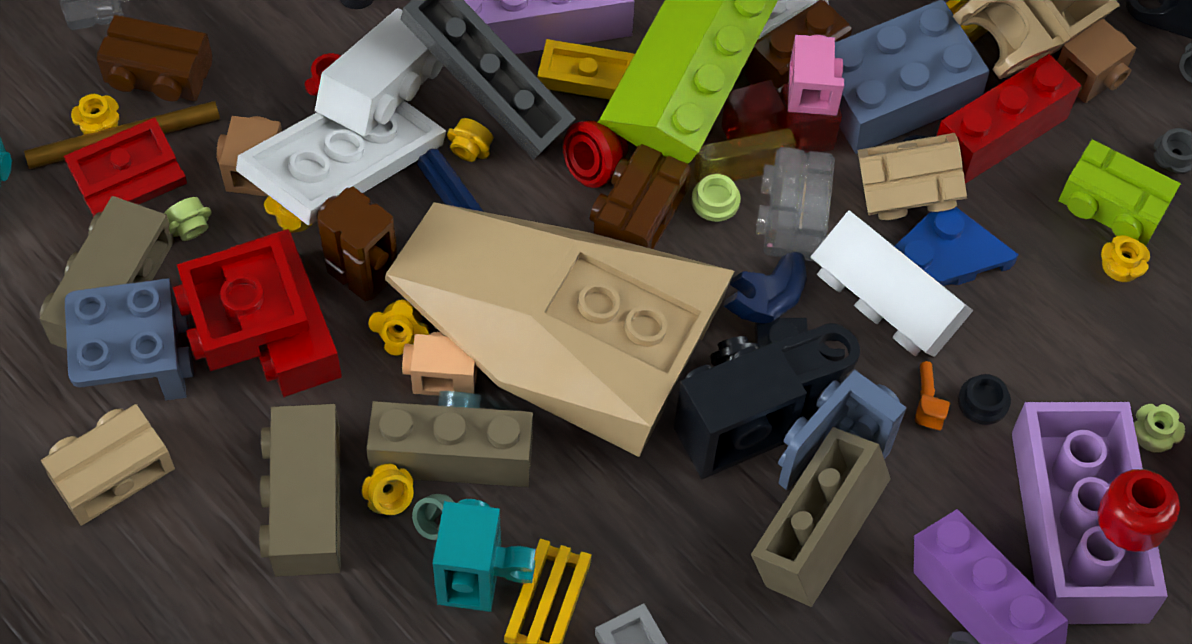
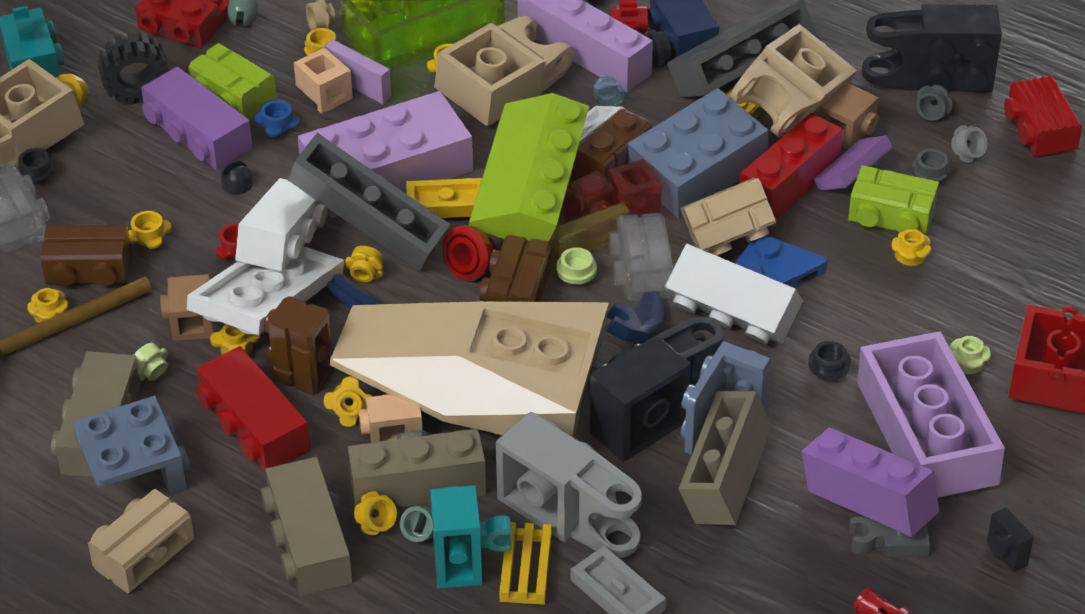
camera: 10 degrees left, 15 degrees down
(126, 165) = (91, 327): red plate -> none
(234, 28) = (148, 229): none -> yellow plate
(239, 301) = (218, 399): red plate -> none
(618, 515) = (565, 485): none -> light grey brick
(815, 76) = (633, 155): bright pink brick -> none
(930, 410) = (789, 376): orange hand -> none
(1077, 128) = (847, 166): none -> medium lavender tile
(1138, 510) = (965, 388): red head -> none

